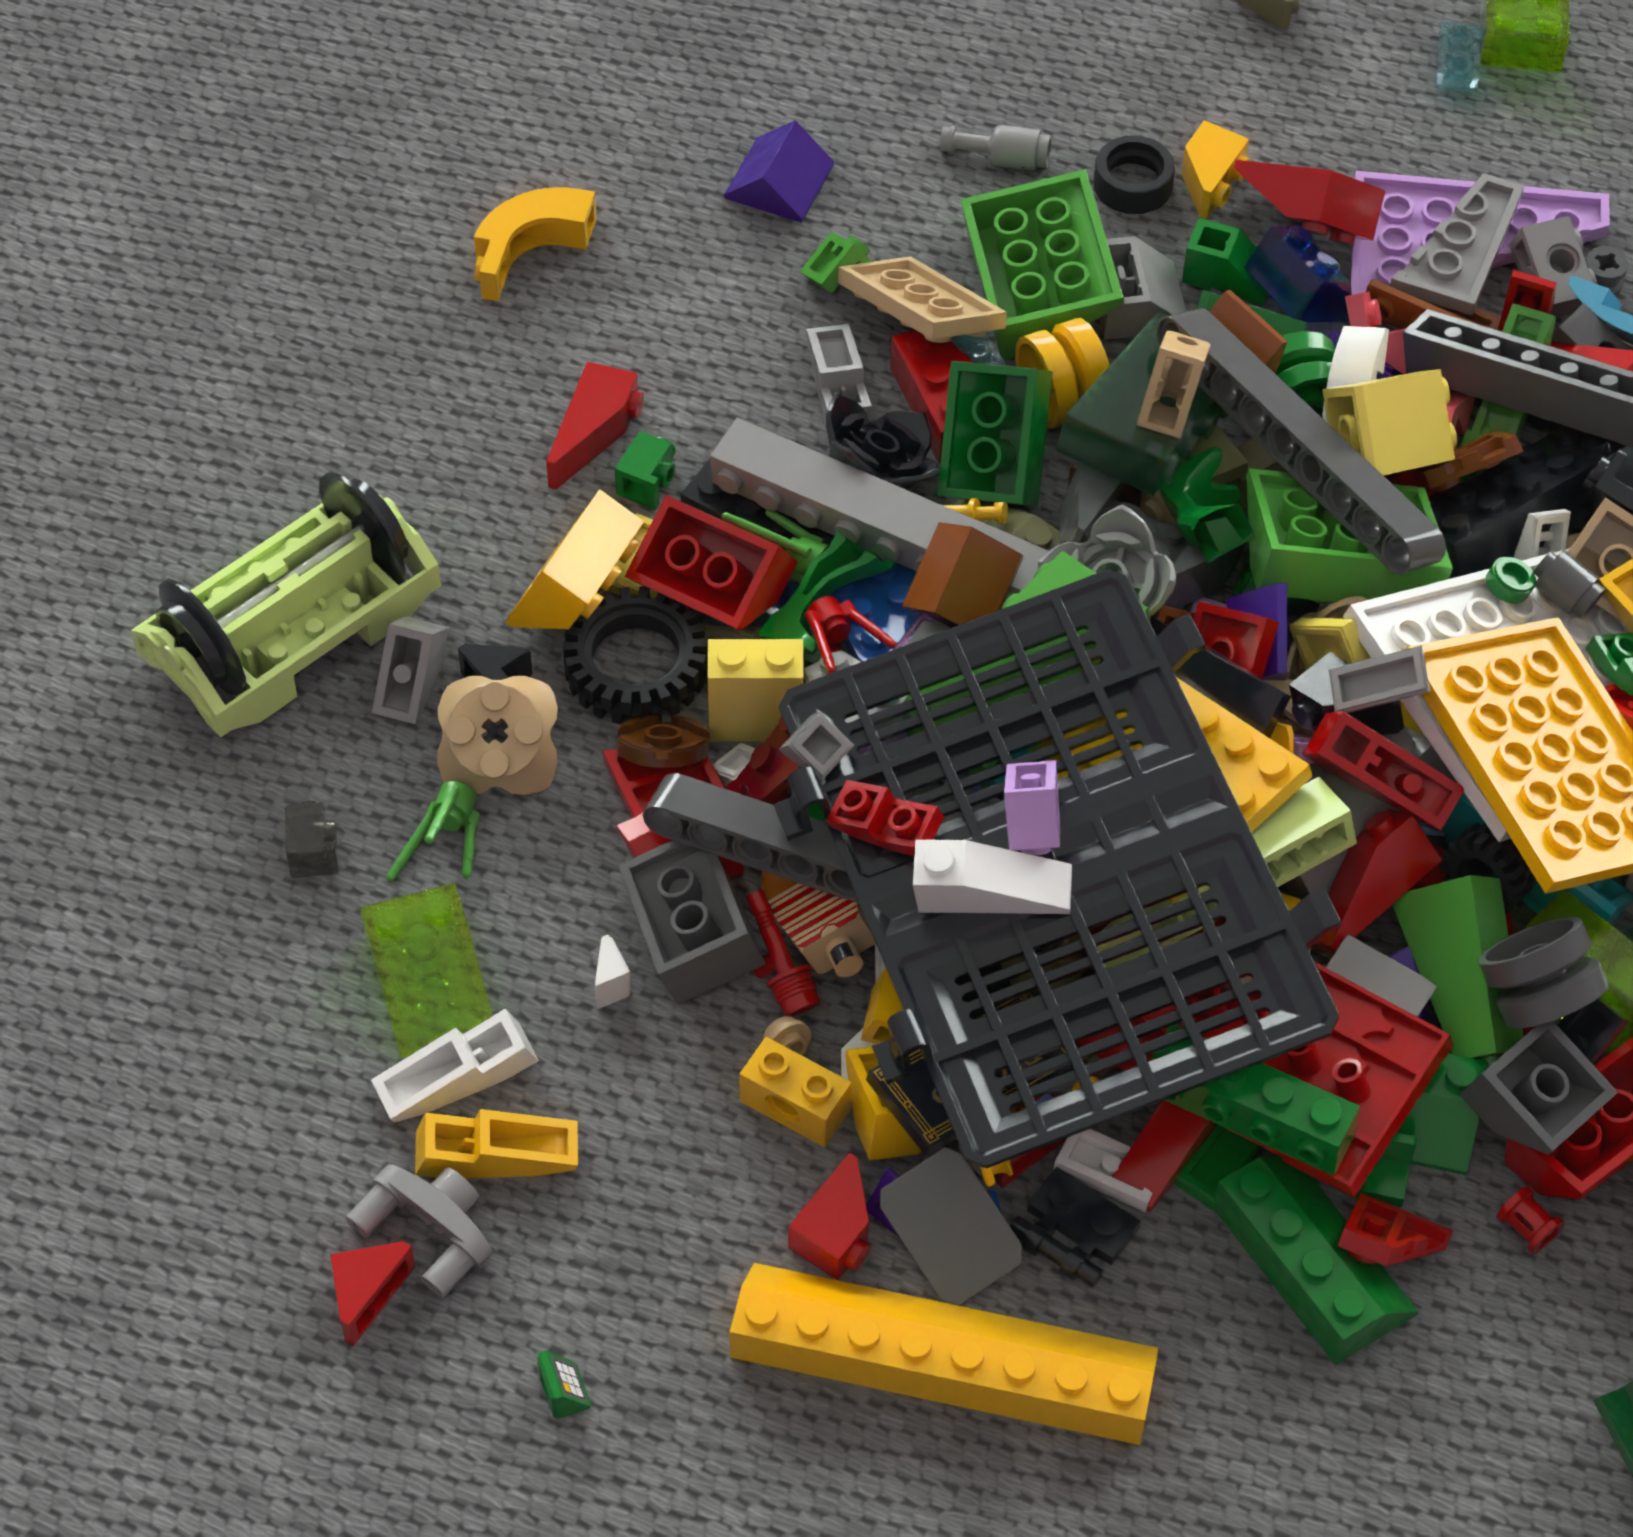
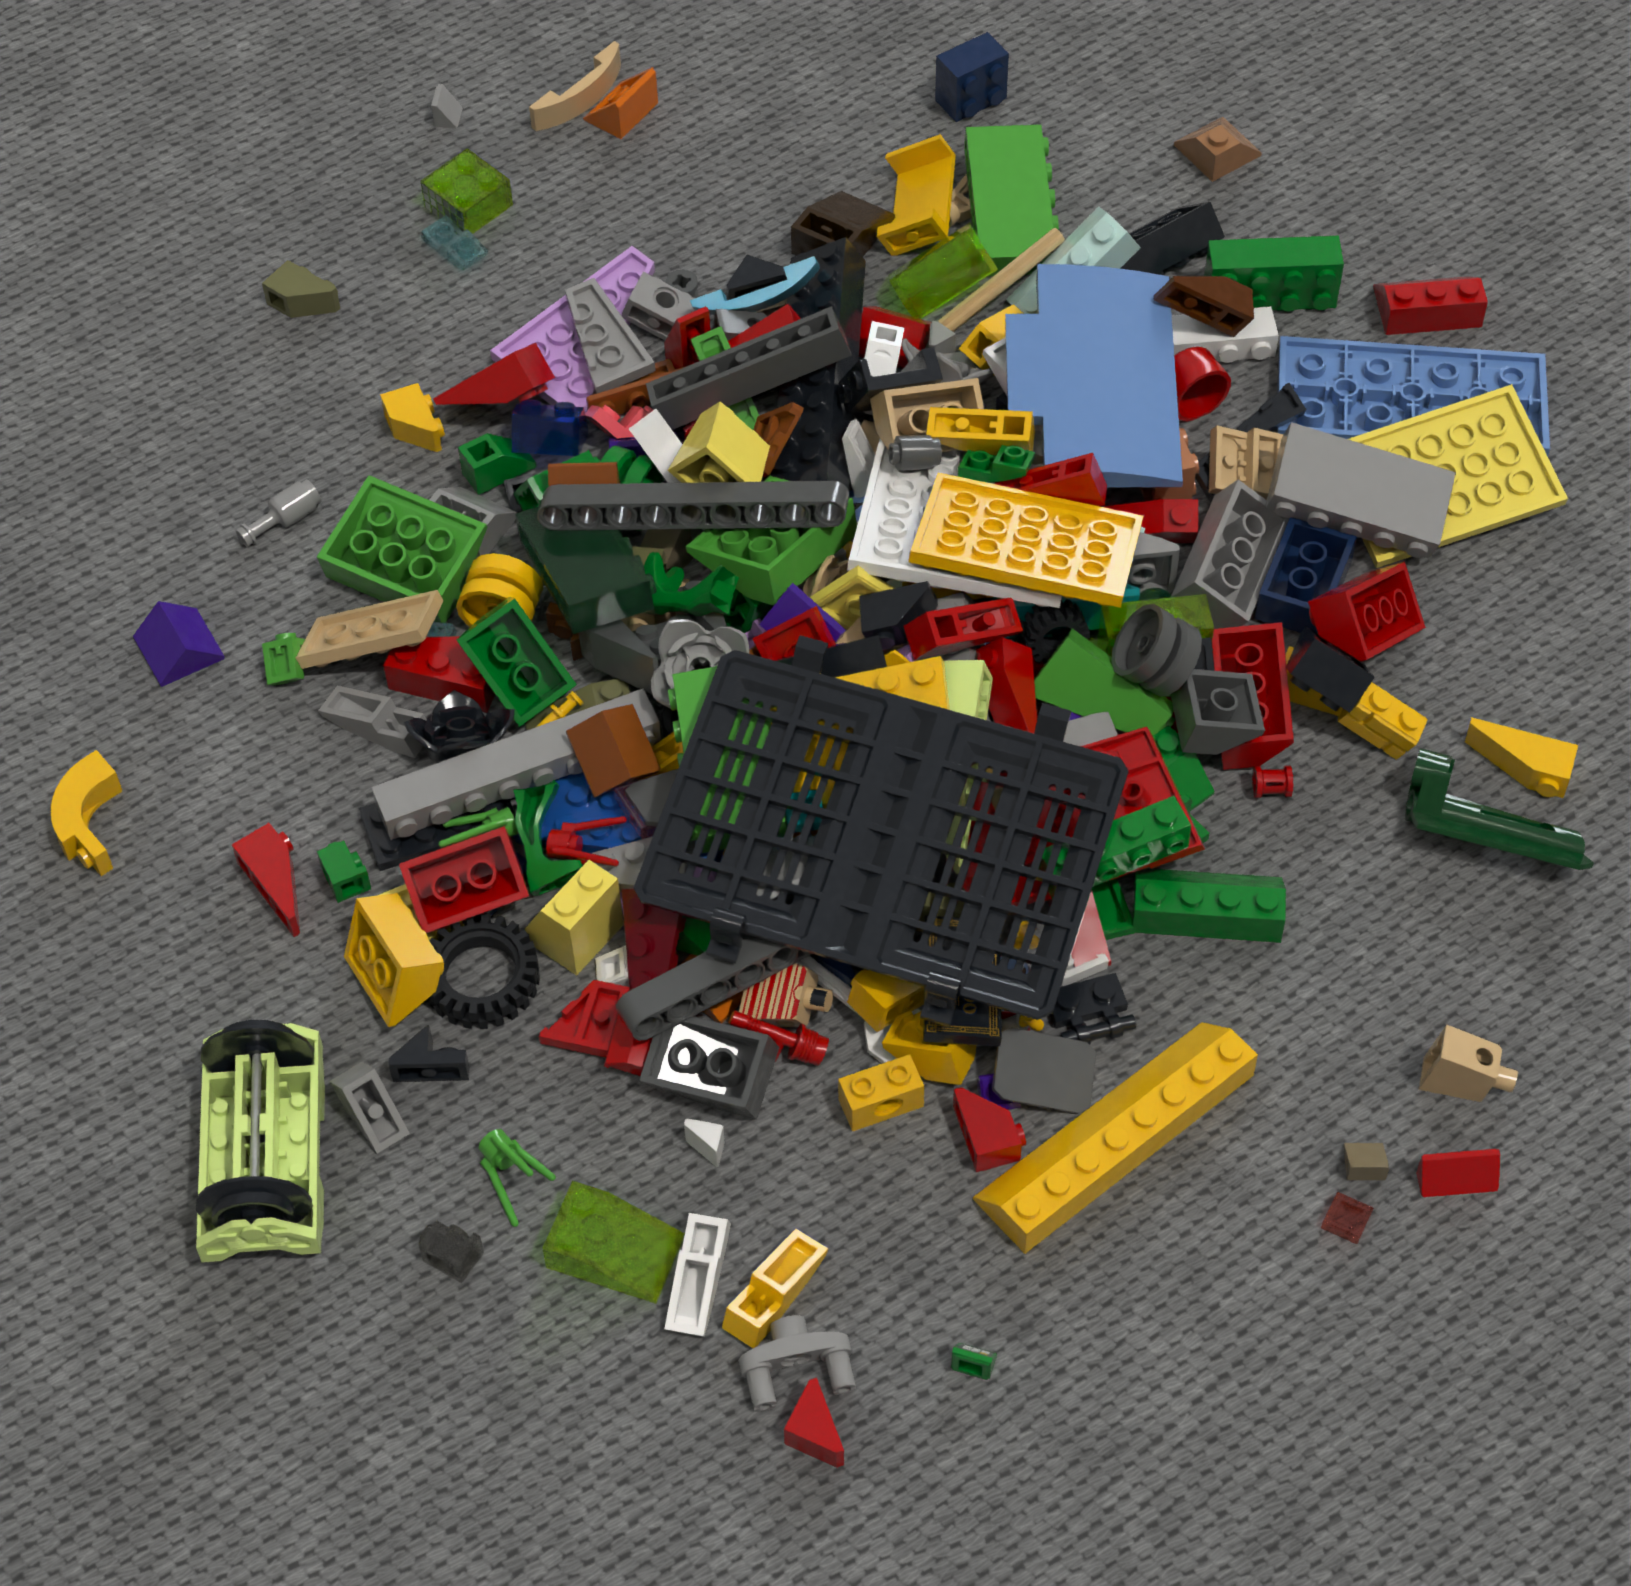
camera: 50 degrees left, 0 degrees up
(519, 764) = (448, 1090): tan brick -> none
(663, 743) = (564, 997): reddish brown tile -> none
(789, 1033) = (836, 1069): tan plate -> none
(817, 745) = (690, 898): light grey slope -> none
(881, 819) = (779, 898): red slope -> none
(987, 879) = (875, 871): white slope -> none
(1032, 807) = (850, 809): lavender slope -> none
(1127, 197) = (369, 441): black tyre -> none
(1173, 376) = (603, 534): tan torso -> none
(1379, 680) = (917, 581): light grey tile -> none
(1390, 1234) = (1228, 854): red wing -> none
(1511, 580) = (887, 477): green tile -> none

